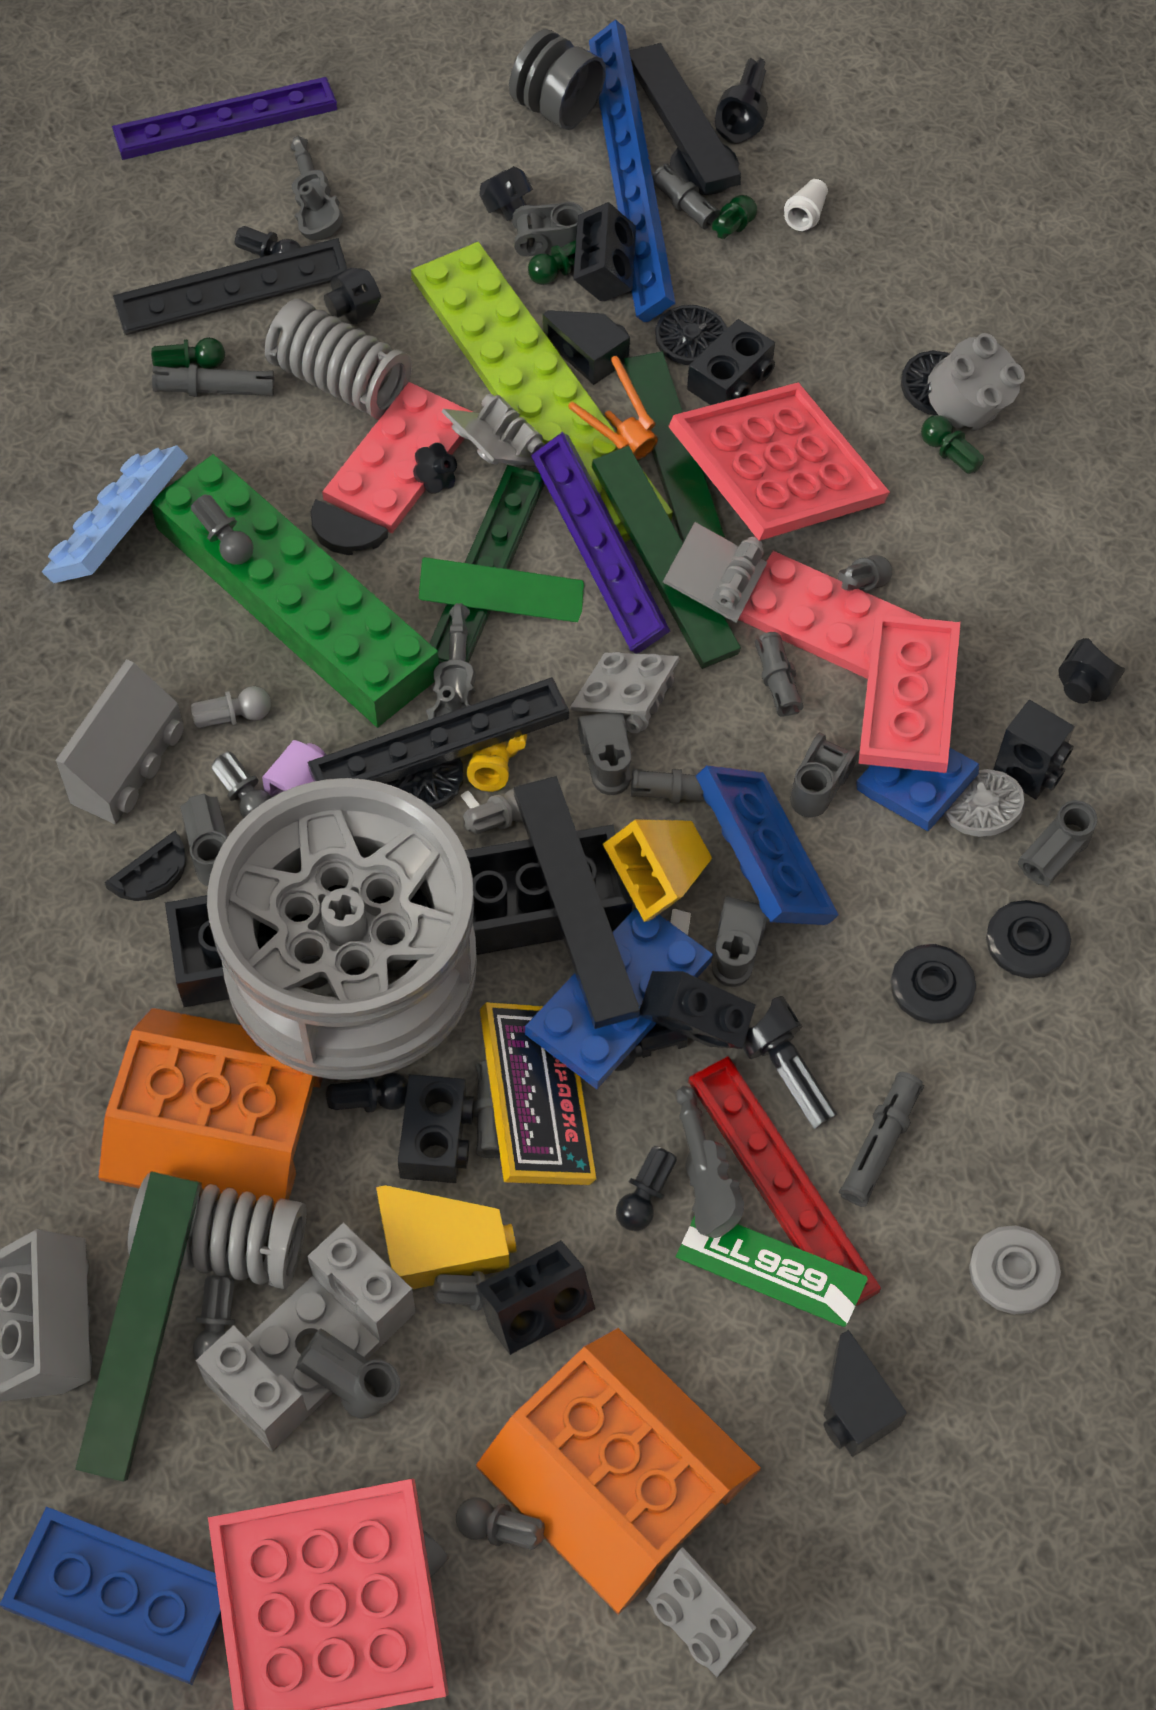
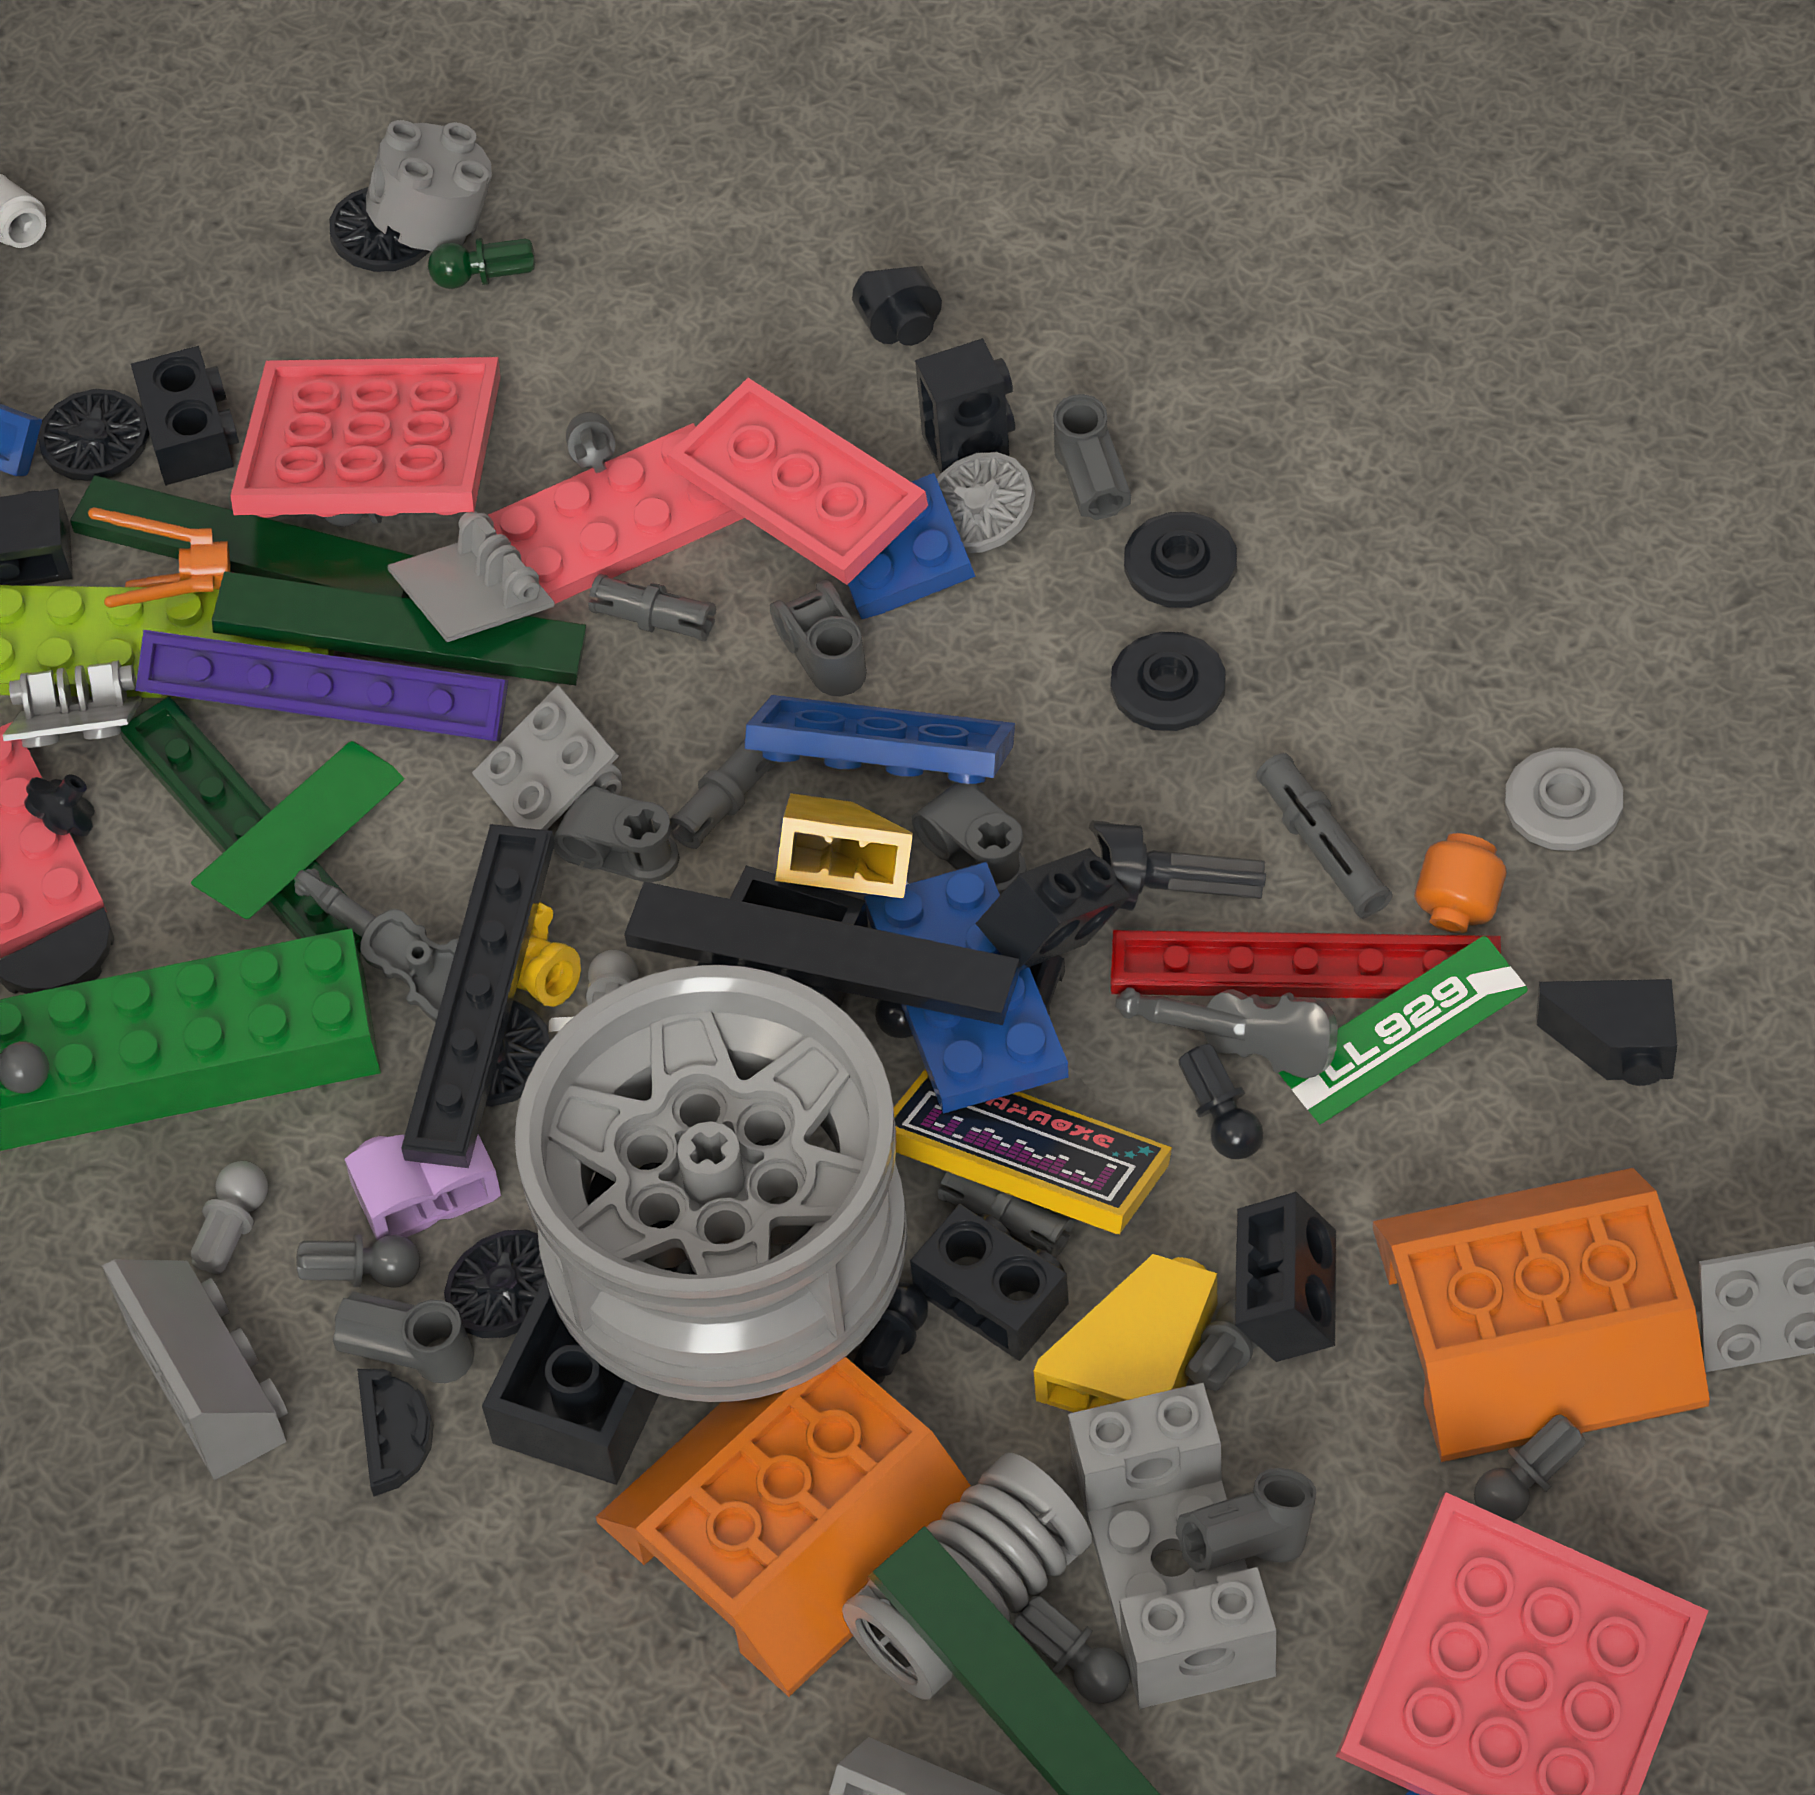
camera: 50 degrees left, 5 degrees down
(899, 1240) = (1460, 882): none -> orange head

